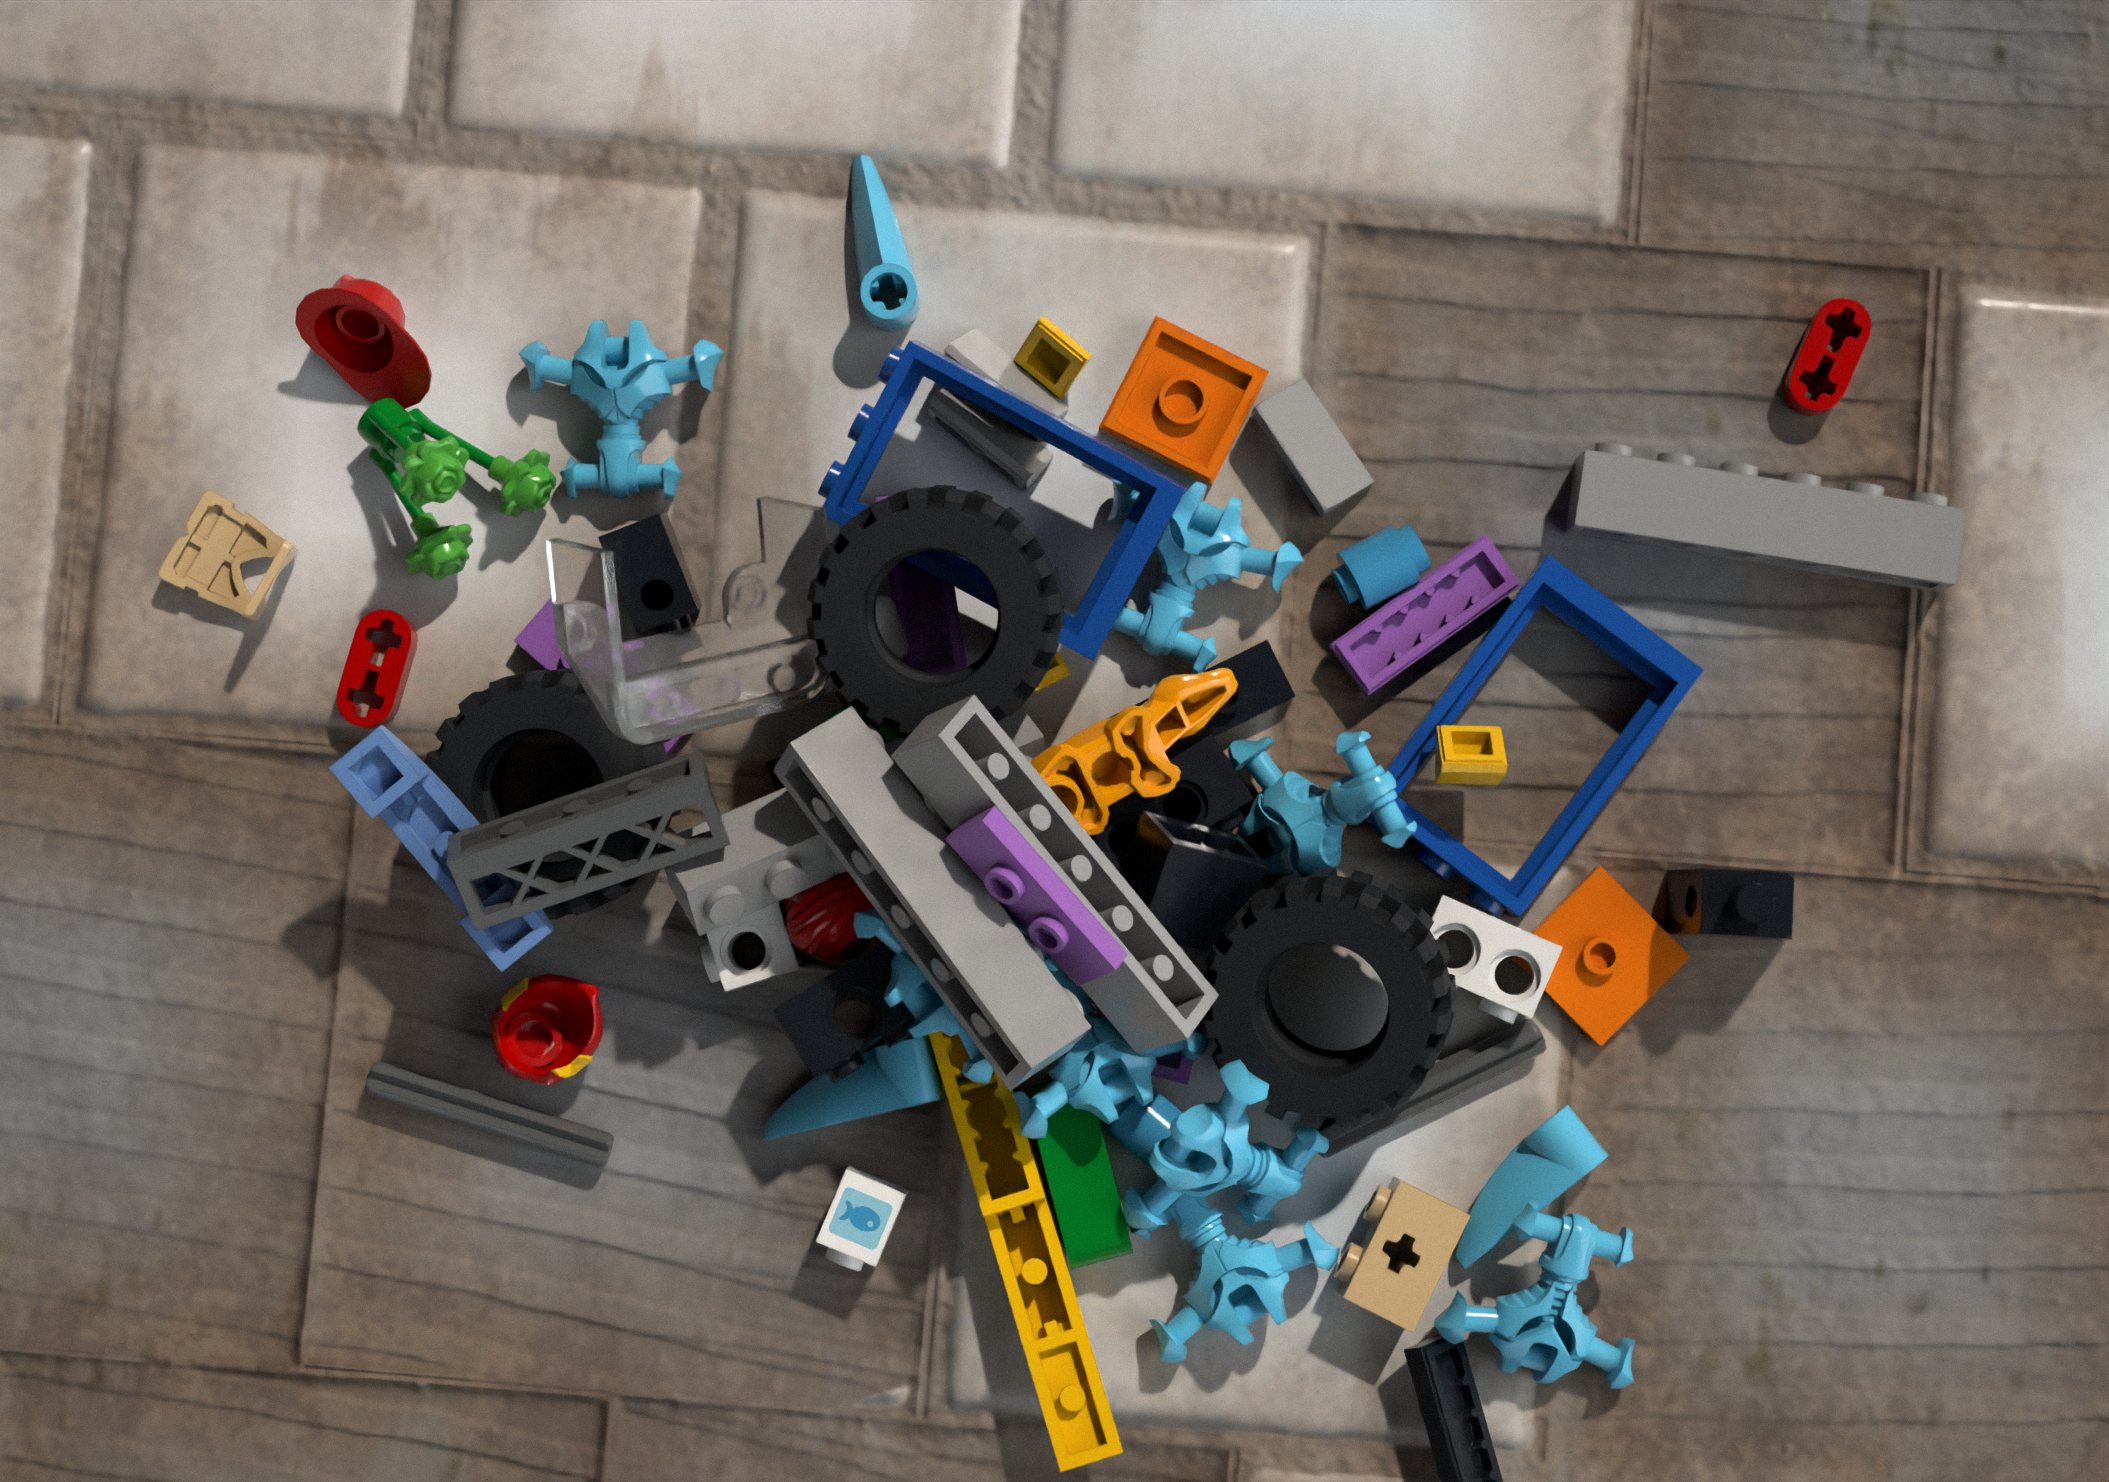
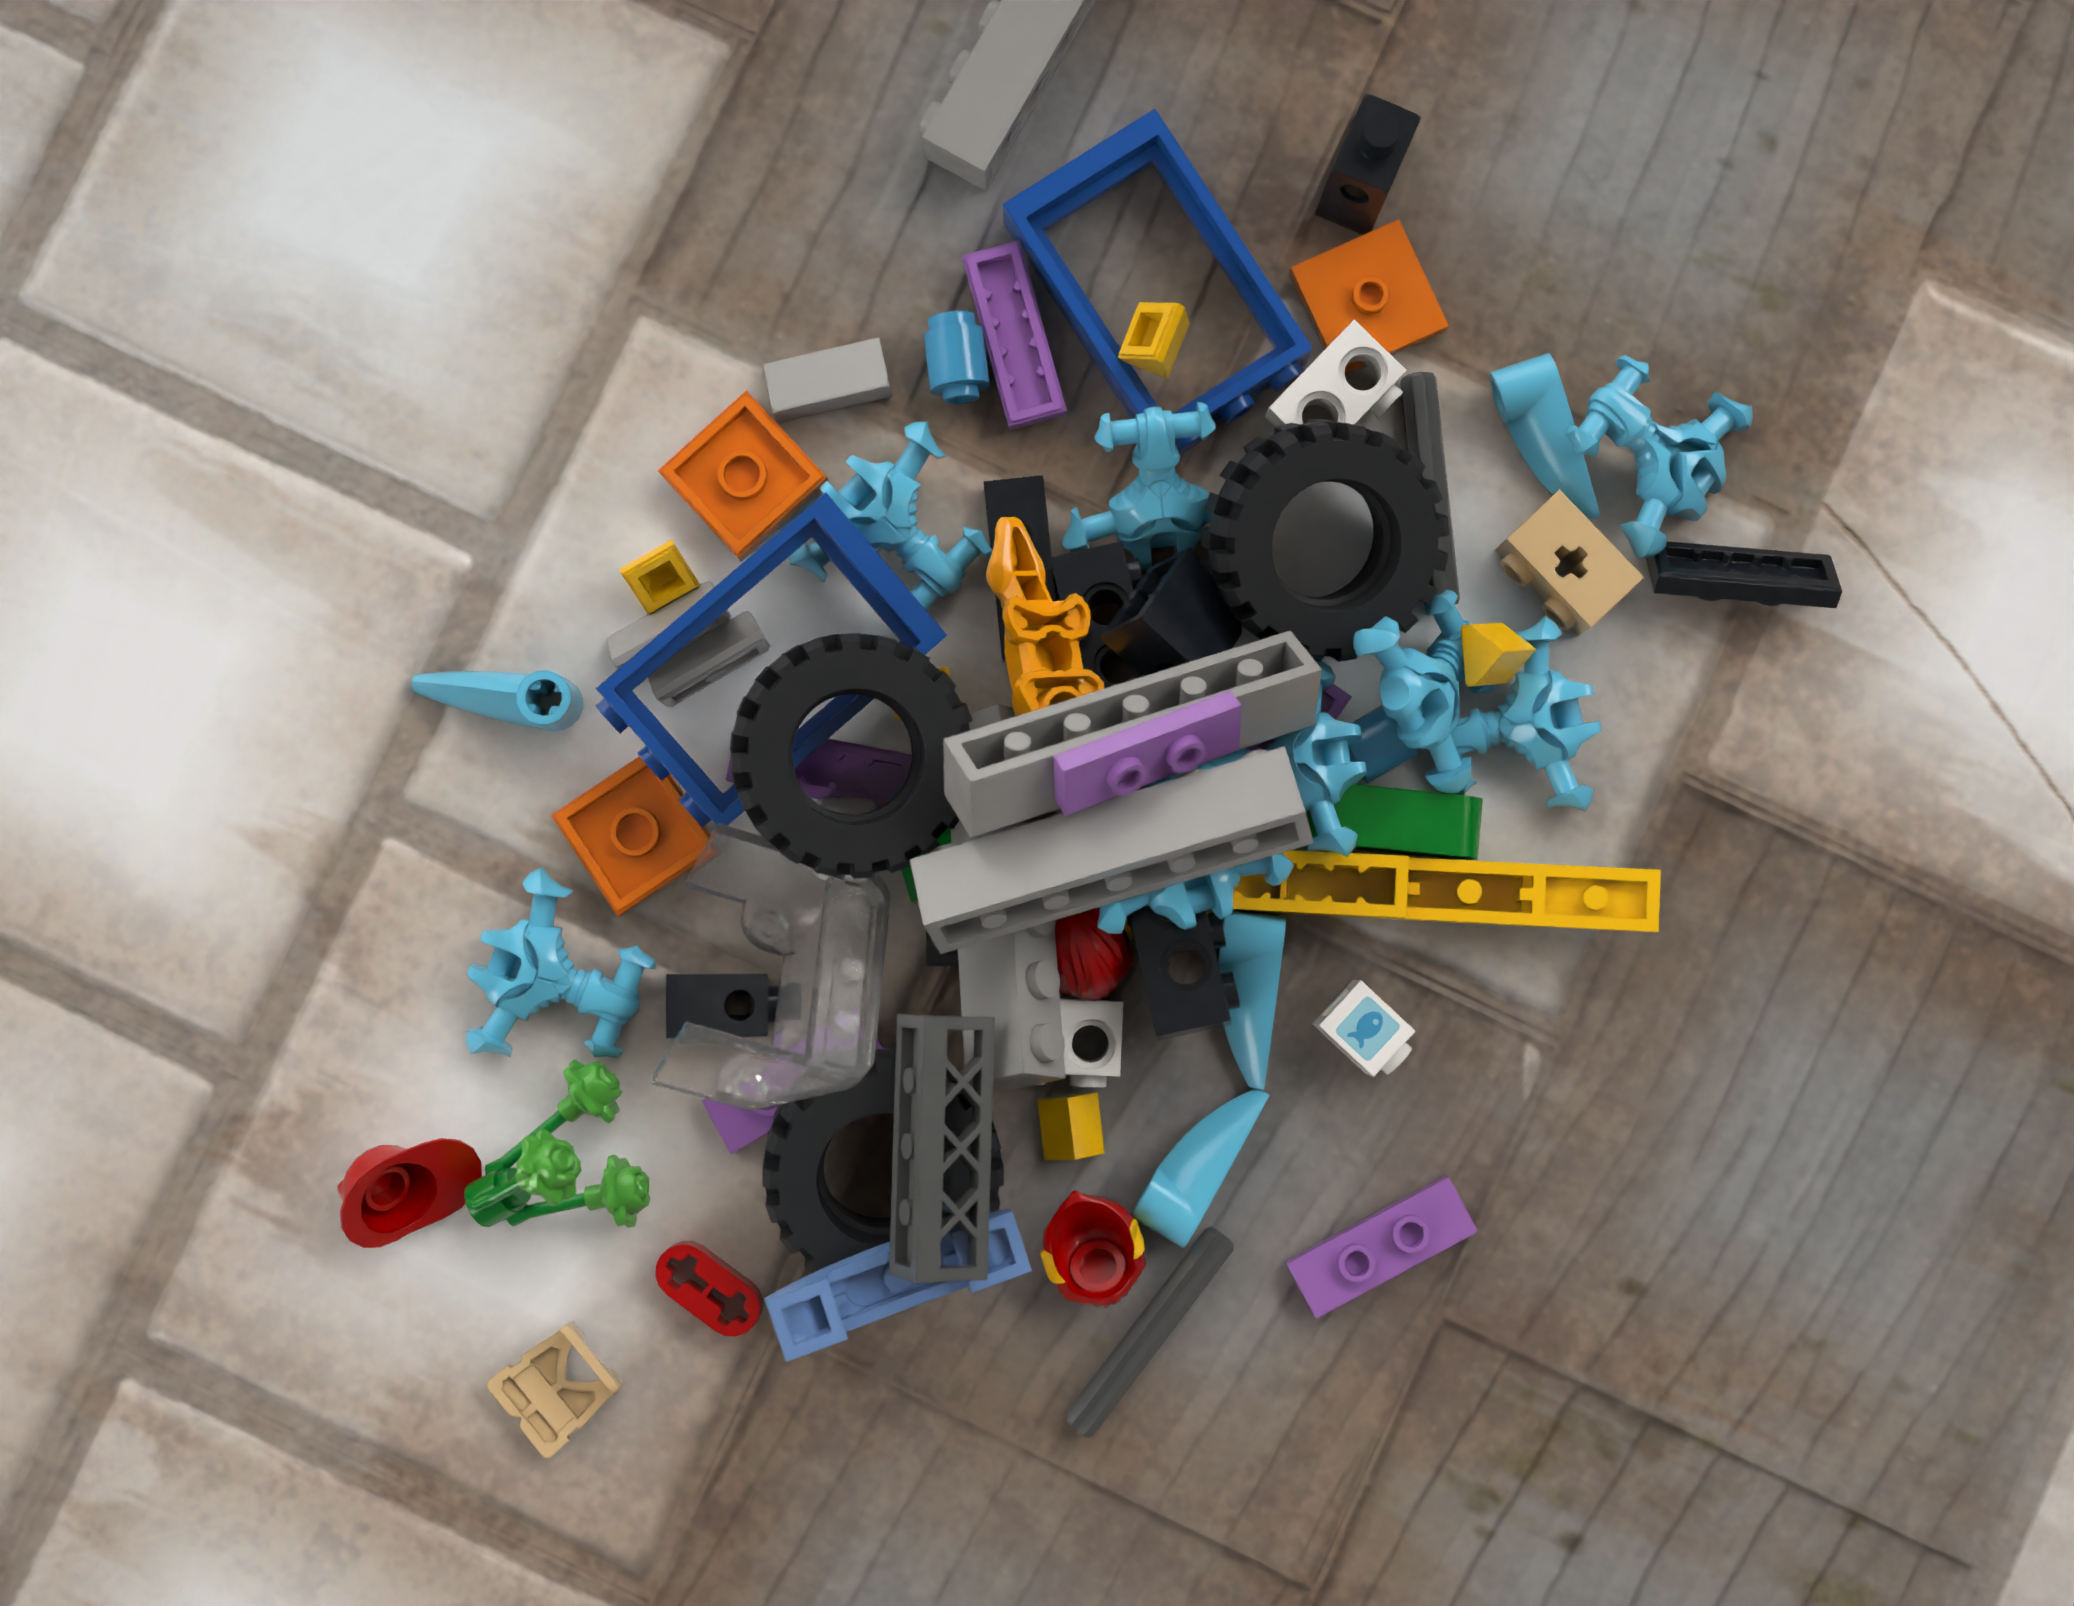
camera: 65 degrees left, 0 degrees up
(654, 1312) = (1381, 1246): none -> medium lavender plate
(661, 963) = (1071, 1126): none -> yellow slope
(664, 1101) = (1196, 1168): none -> medium azure piece
(787, 427) = (632, 834): none -> orange plate
(1279, 1207) = (1492, 653): none -> yellow slope

